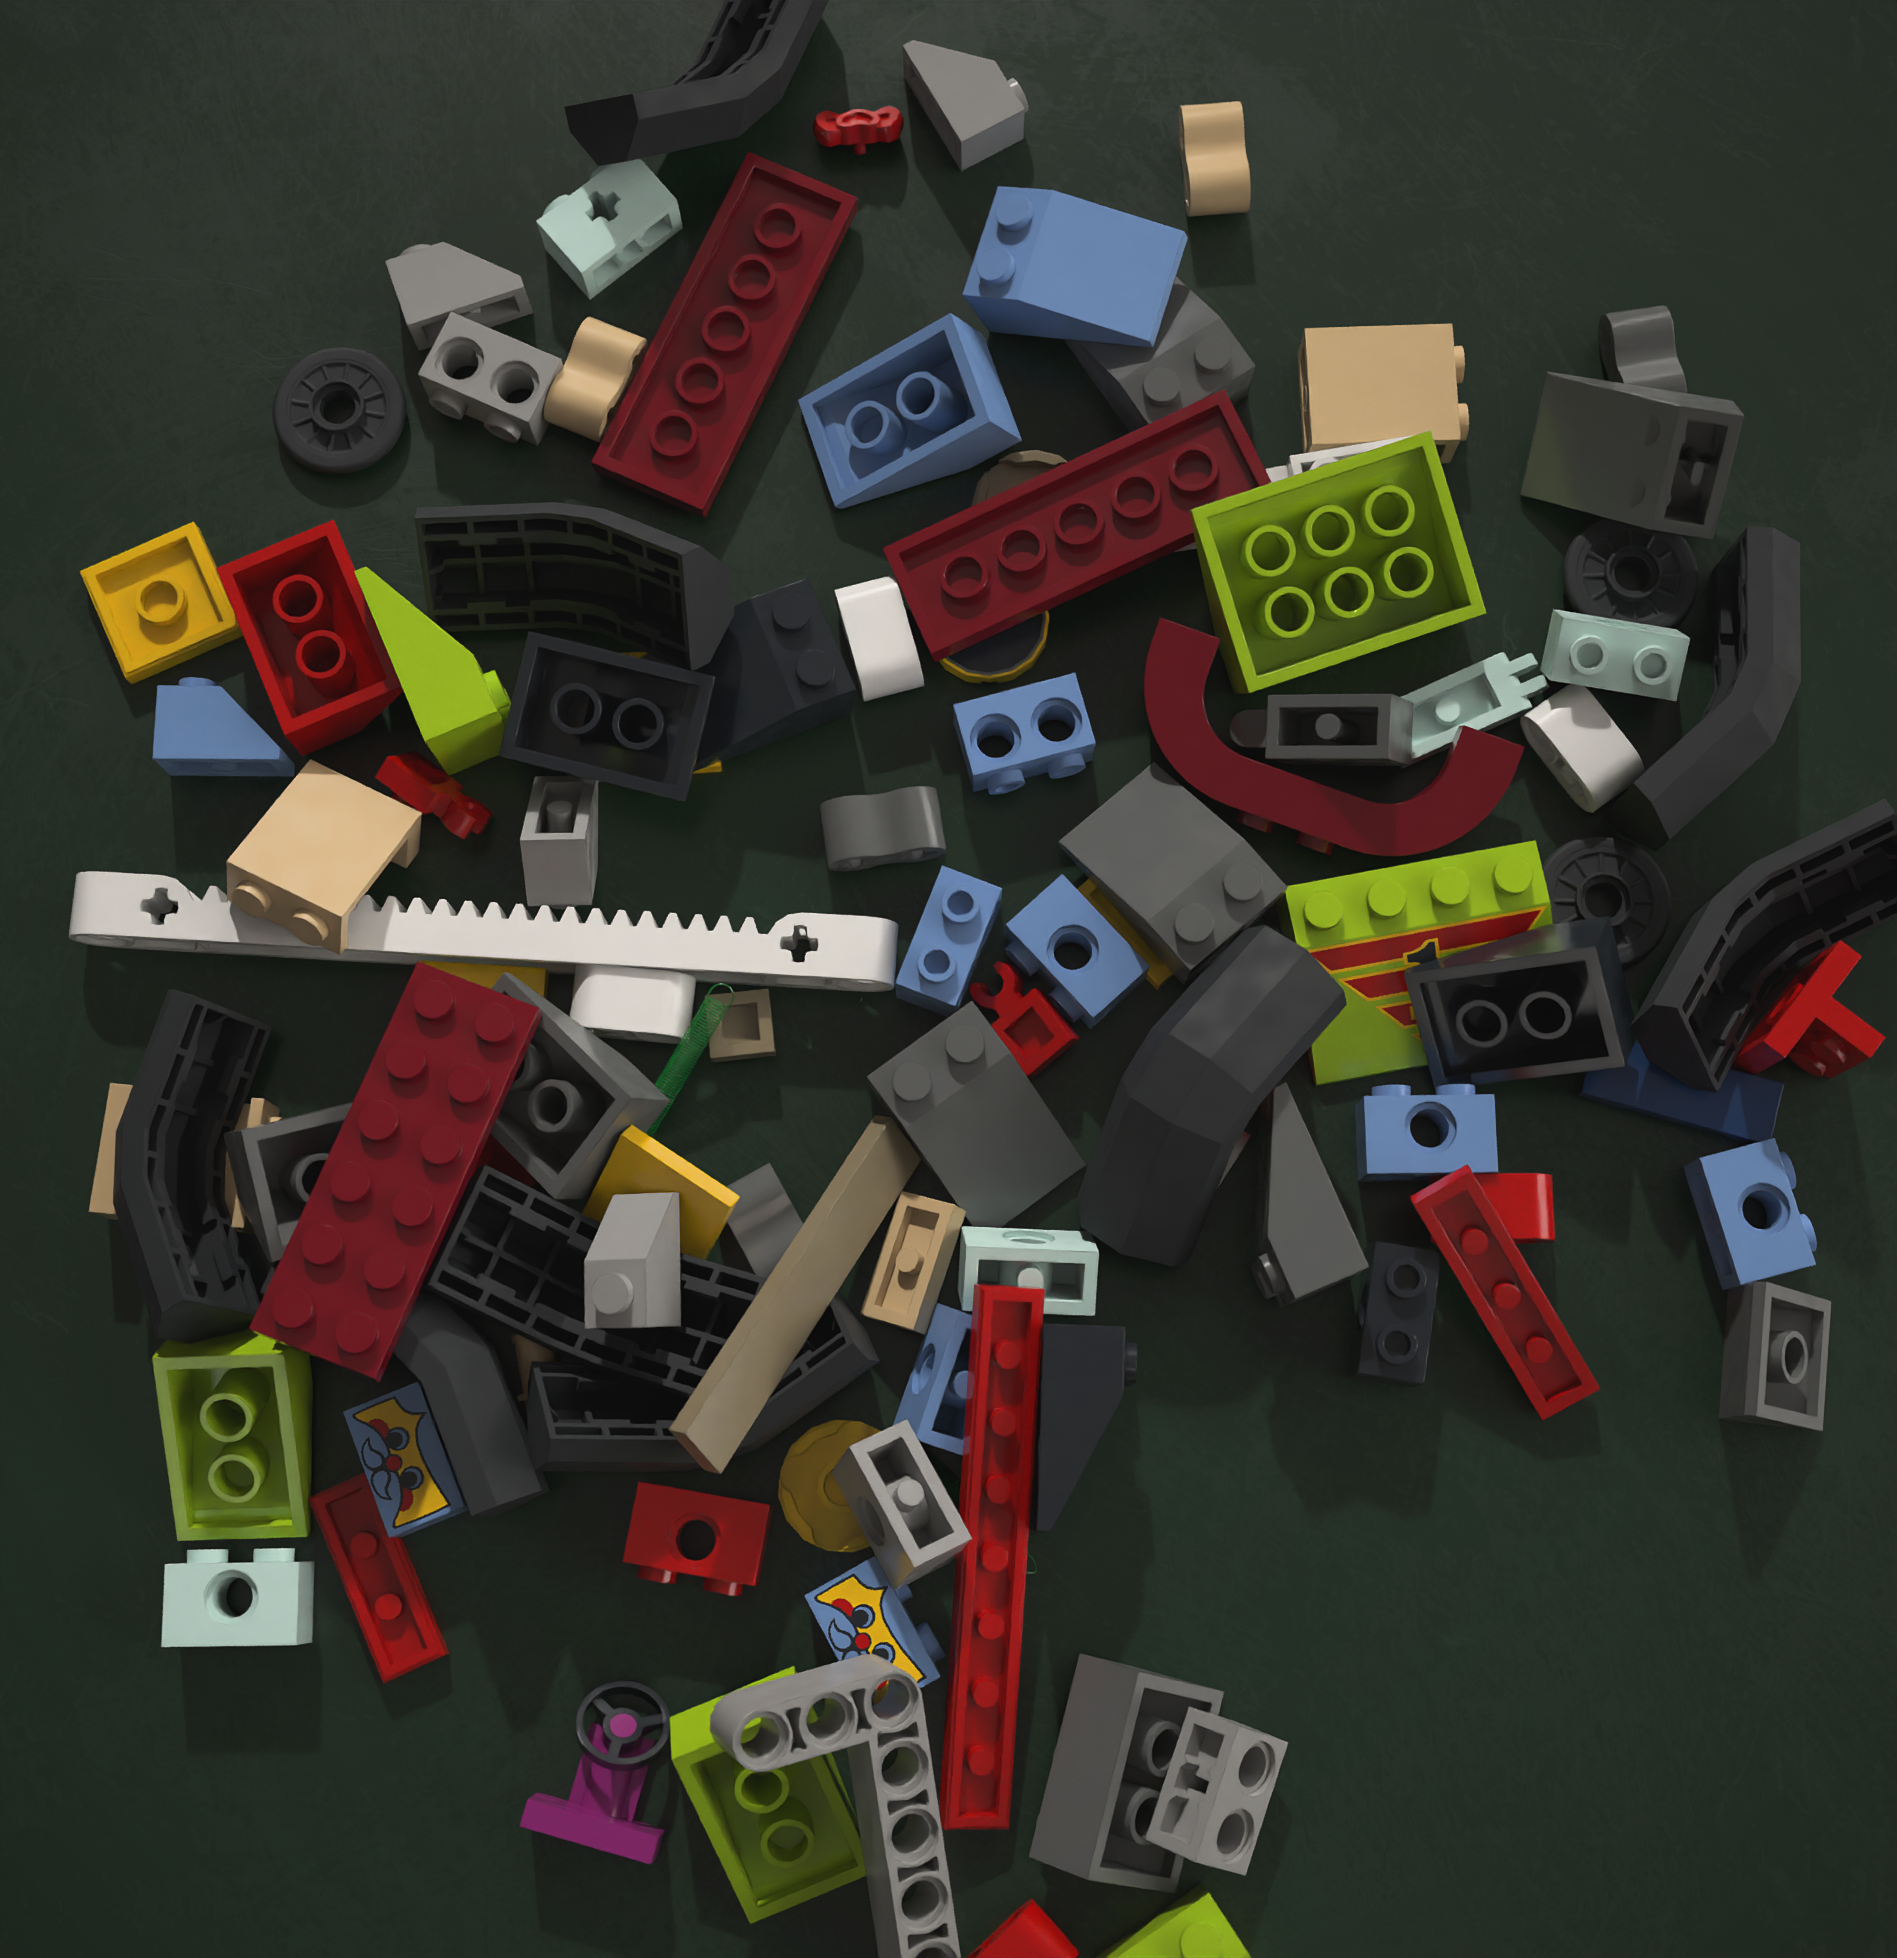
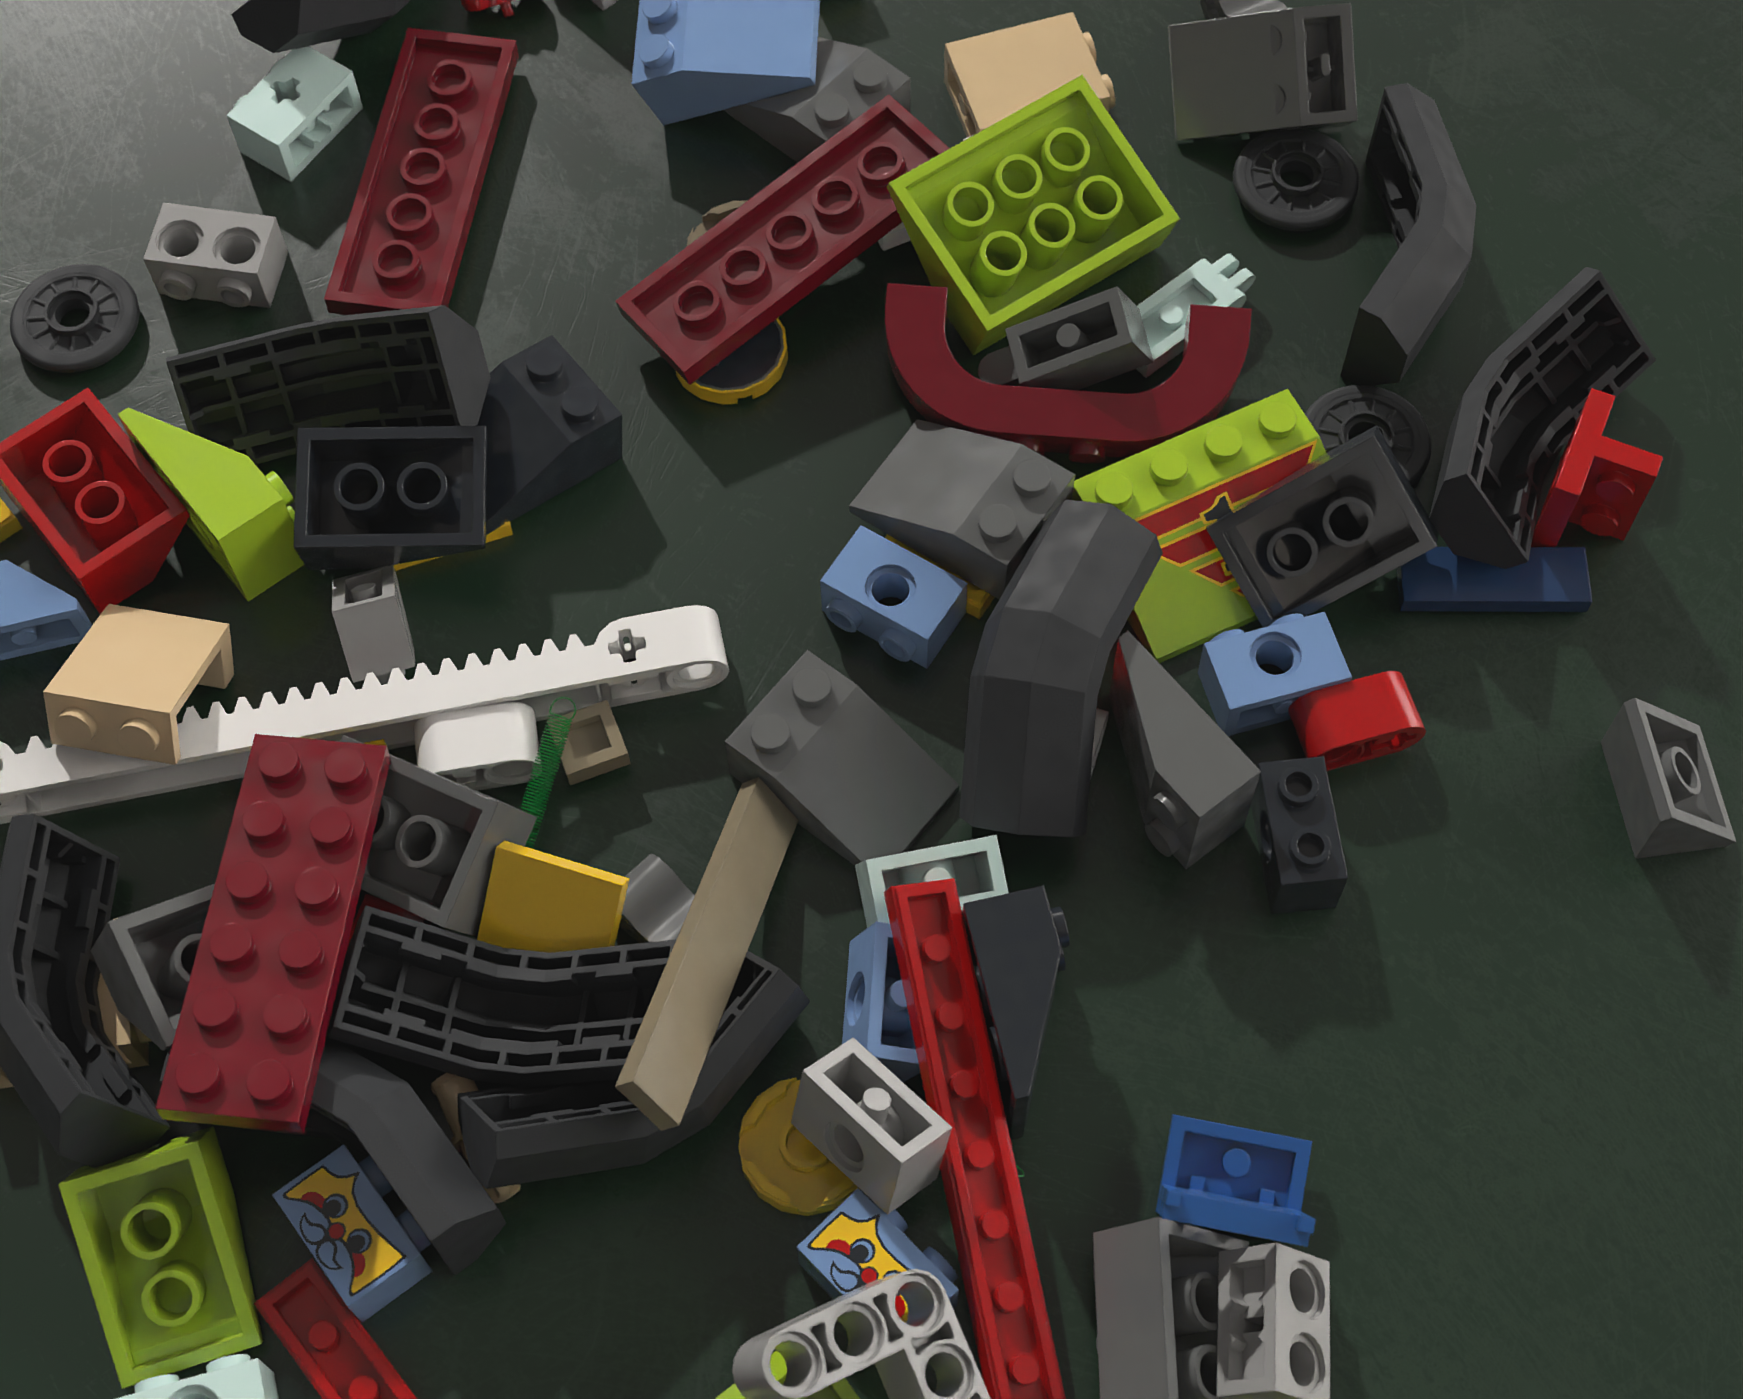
camera: 15 degrees left, 15 degrees down
(429, 789) = (232, 608): red plate -> none
(447, 280) = (142, 183): light grey slope -> none
(594, 379) = (309, 234): tan axle -> none
(635, 1264) = (542, 966): light grey slope -> none
(657, 1528) = (636, 1206): red brick -> none
(879, 638) = (633, 380): white beam -> none
(882, 828) = (679, 538): dark grey axle -> none
(910, 414) = (610, 196): medium blue slope -> none
(913, 1262) = (817, 911): tan plate -> none
(948, 942) = (769, 614): medium blue brick -> none
(1017, 718) = (782, 415): medium blue brick -> none
(1027, 1023) = (869, 665): red plate -> none
(1223, 1650) = (1235, 1180): none -> blue plate
(1504, 1292) = (1396, 781): red plate -> none
(1582, 747) = (1301, 317): white beam -> none
(1614, 655) = (1304, 232): light aqua brick -> none
(1738, 1249) = (1588, 626): medium blue brick -> none

